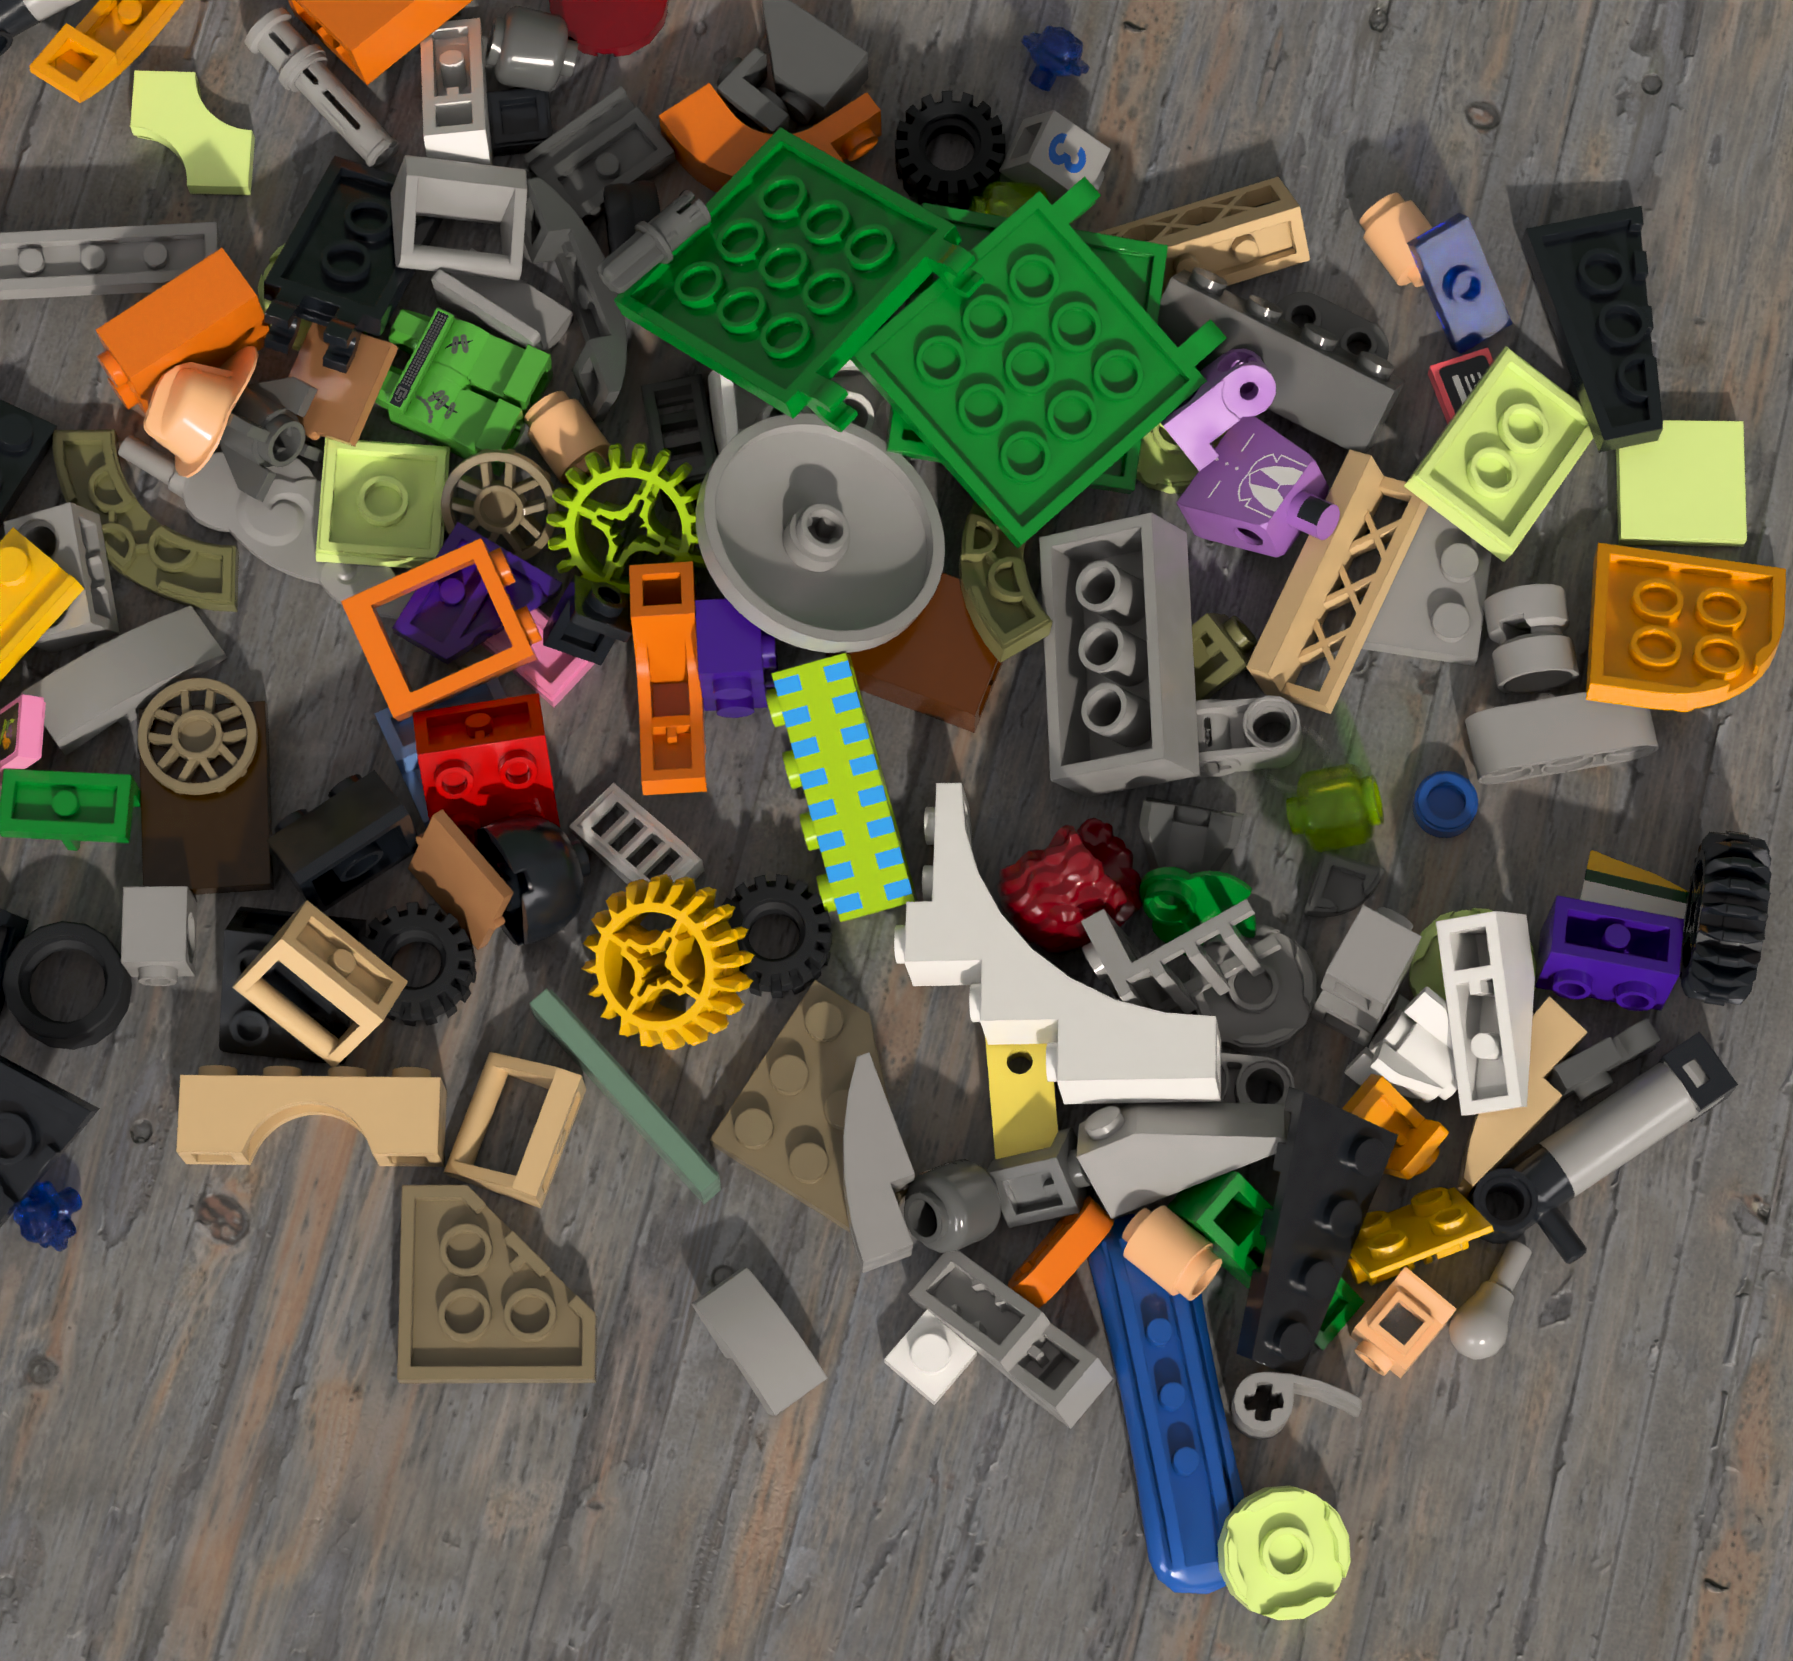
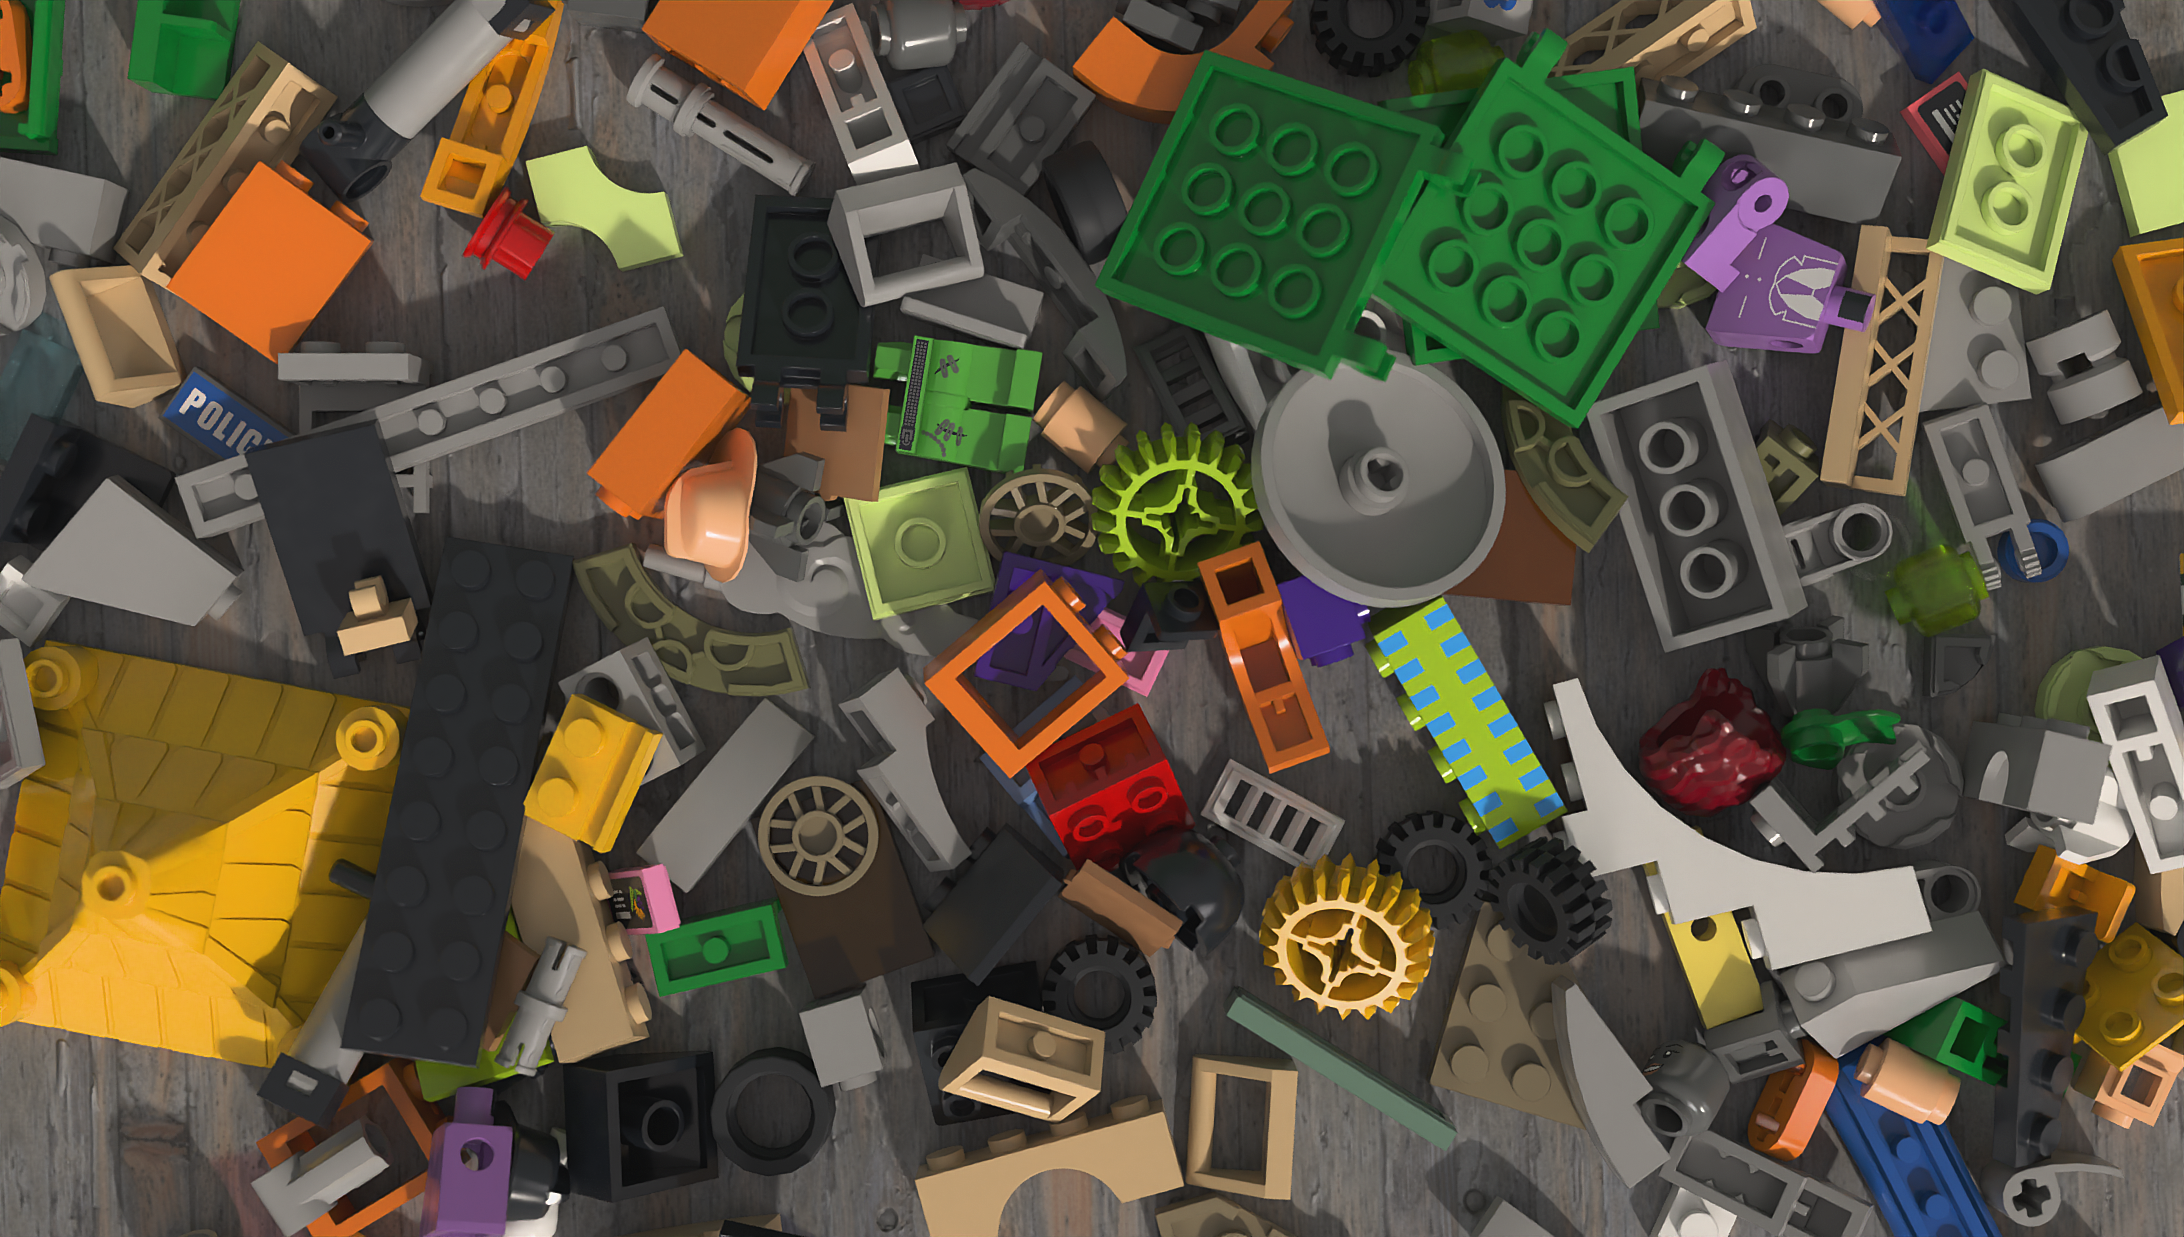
camera: 15 degrees left, 15 degrees up
(96, 128) = (509, 237): none -> red piece
(300, 647) = (893, 723): none -> light grey slope
(653, 242) = (1120, 218): dark grey axle -> none
(871, 975) = (1550, 900): none -> black tyre
(1403, 725) = (1981, 488): none -> light grey hinge

